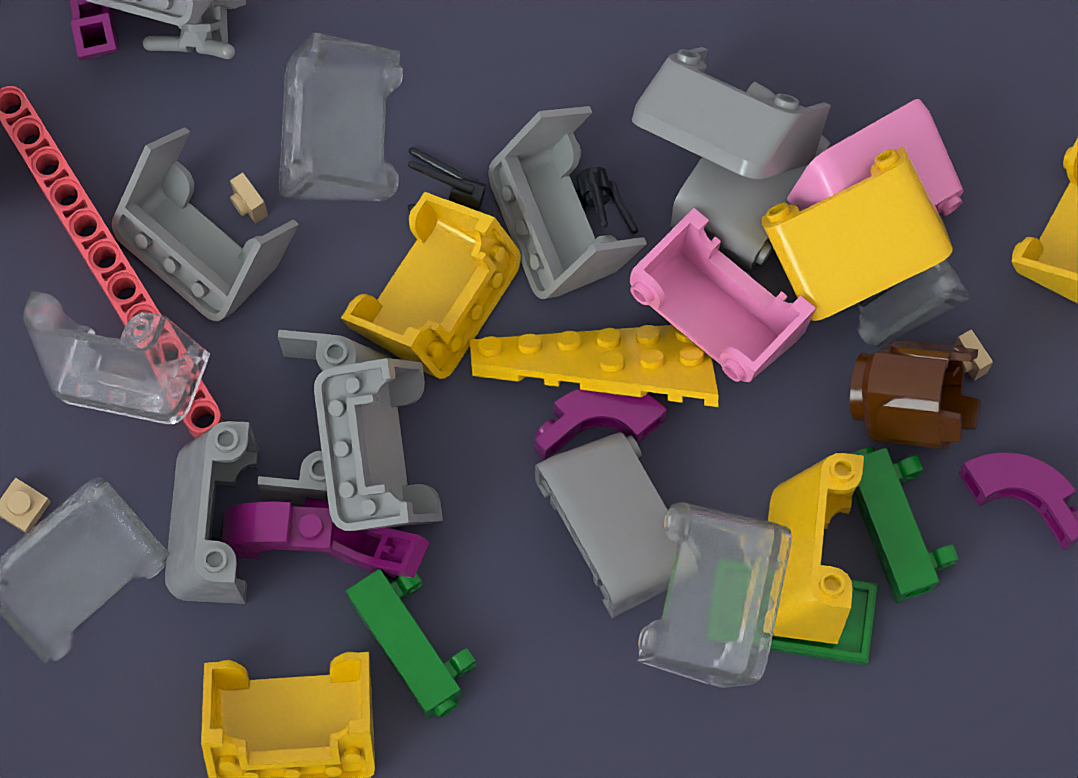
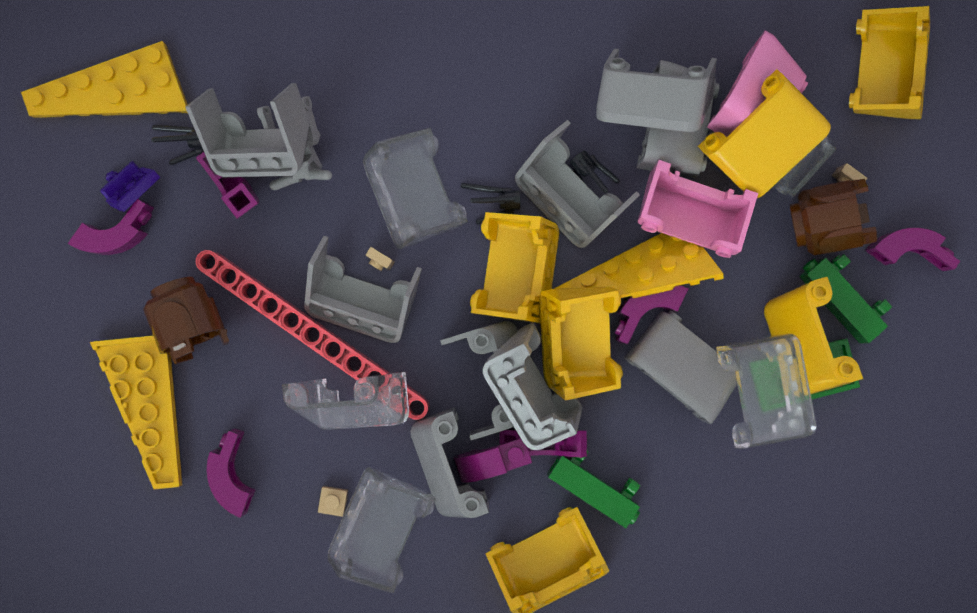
camera: 25 degrees left, 15 degrees up
(478, 414) = (578, 340): none -> yellow windscreen

